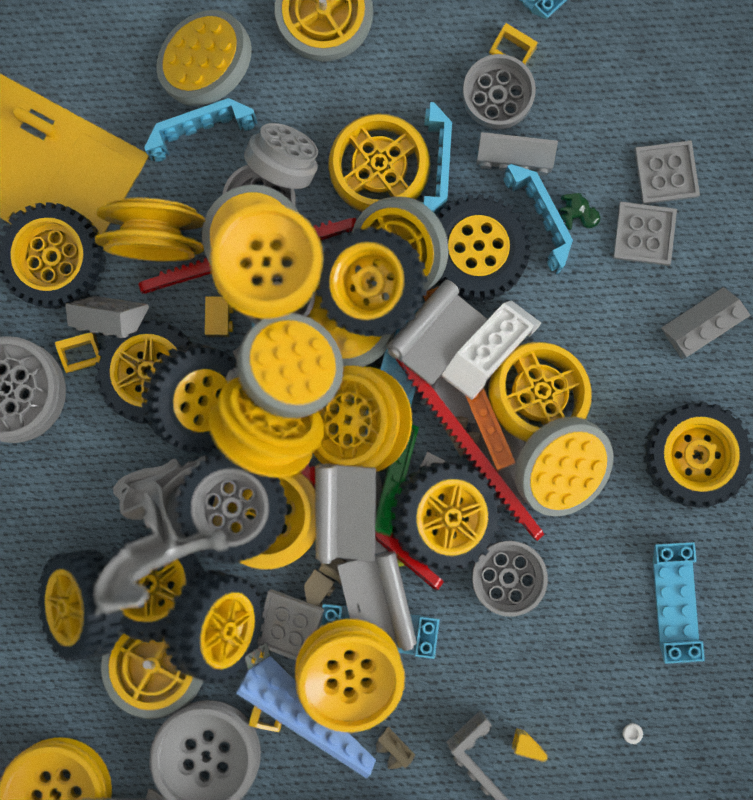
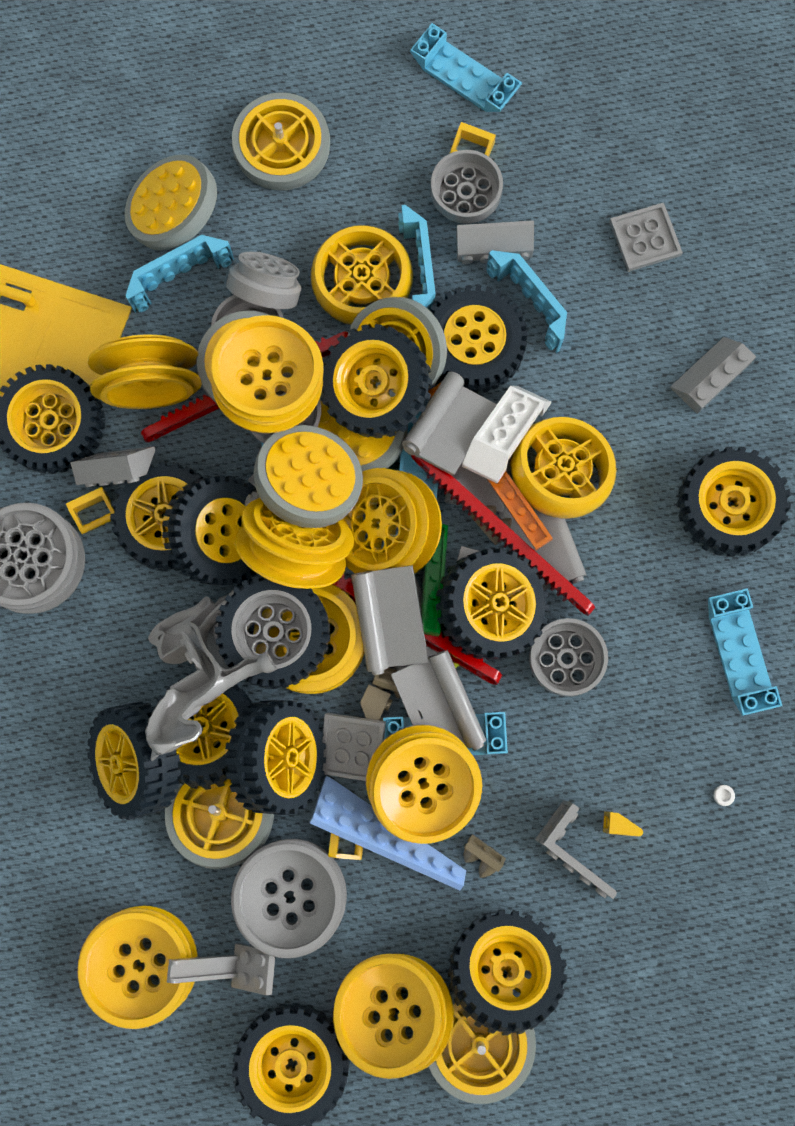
camera: 10 degrees left, 5 degrees down
(217, 317) = (226, 451): yellow brick -> none
(257, 656) = (324, 783): light grey sticker -> none
(564, 466) = (601, 534): yellow wheel -> none
(578, 207) = (566, 284): dark green animal -> none
(644, 233) = (636, 298): light grey plate -> none

